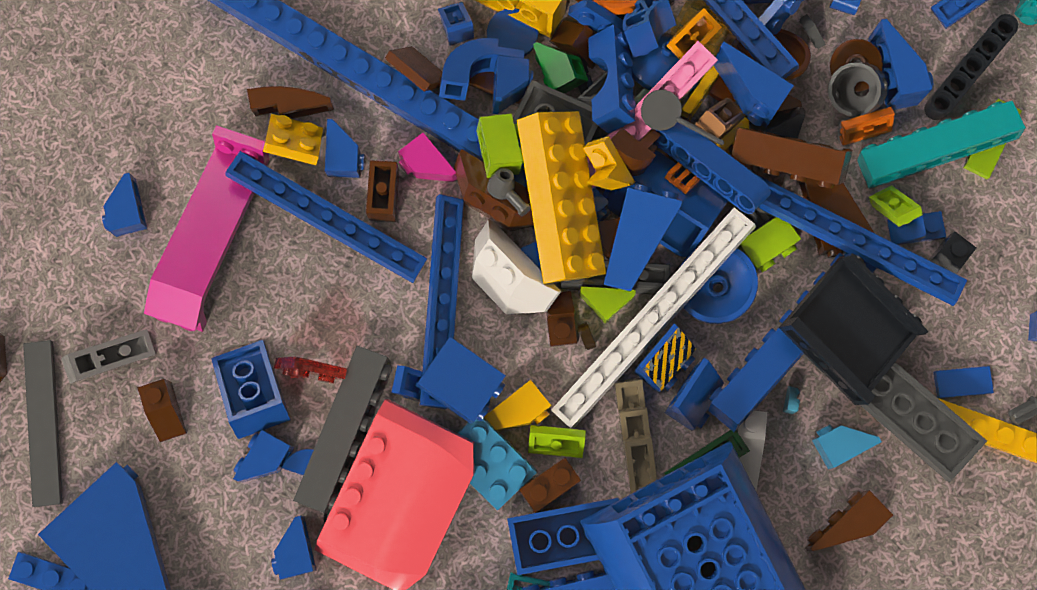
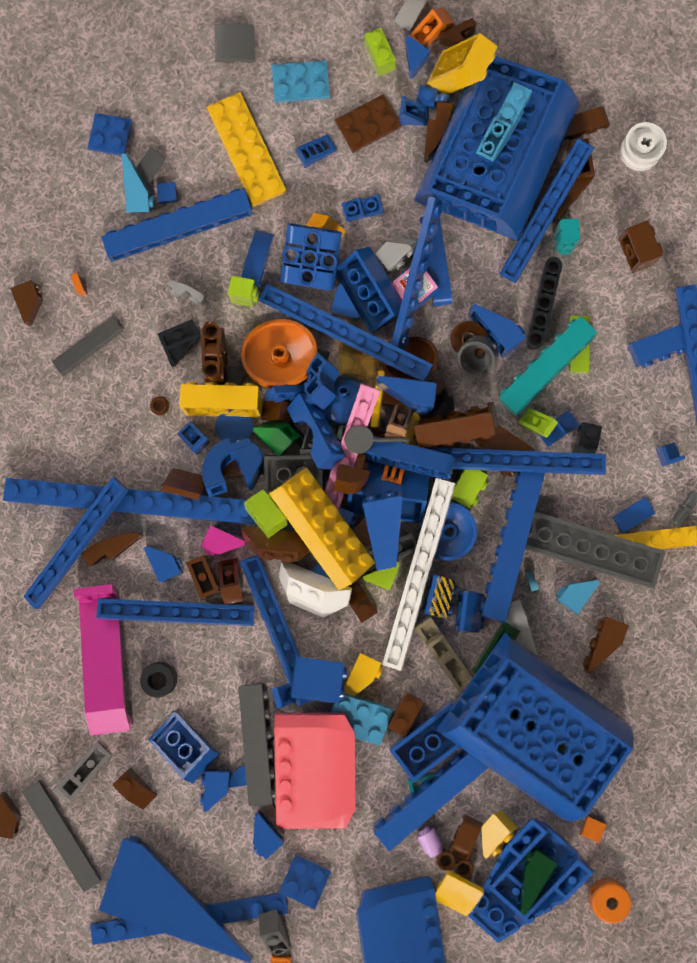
camera: 20 degrees left, 5 degrees up
(124, 208) = (40, 671): blue slope -> none
(248, 72) = (75, 543): none -> blue plate
(250, 278) = (146, 682): none -> black tyre
(293, 139) = (128, 572): yellow plate -> none
(301, 367) = (211, 719): clear red plate -> none
(412, 214) = (230, 581): none -> reddish brown slope
(502, 186) = (283, 542): dark grey bar -> none
(556, 441) = (395, 683): lime plate -> none
(586, 336) = (381, 605): dark brown tile -> none
(610, 169) = (342, 493): yellow slope -> none
(699, 28) = (354, 375): light orange slope -> none
(812, 31) = (429, 329): dark grey tile -> none
(852, 327) = (547, 521): black panel -> none
(867, 126) = (495, 377): orange tile -> none

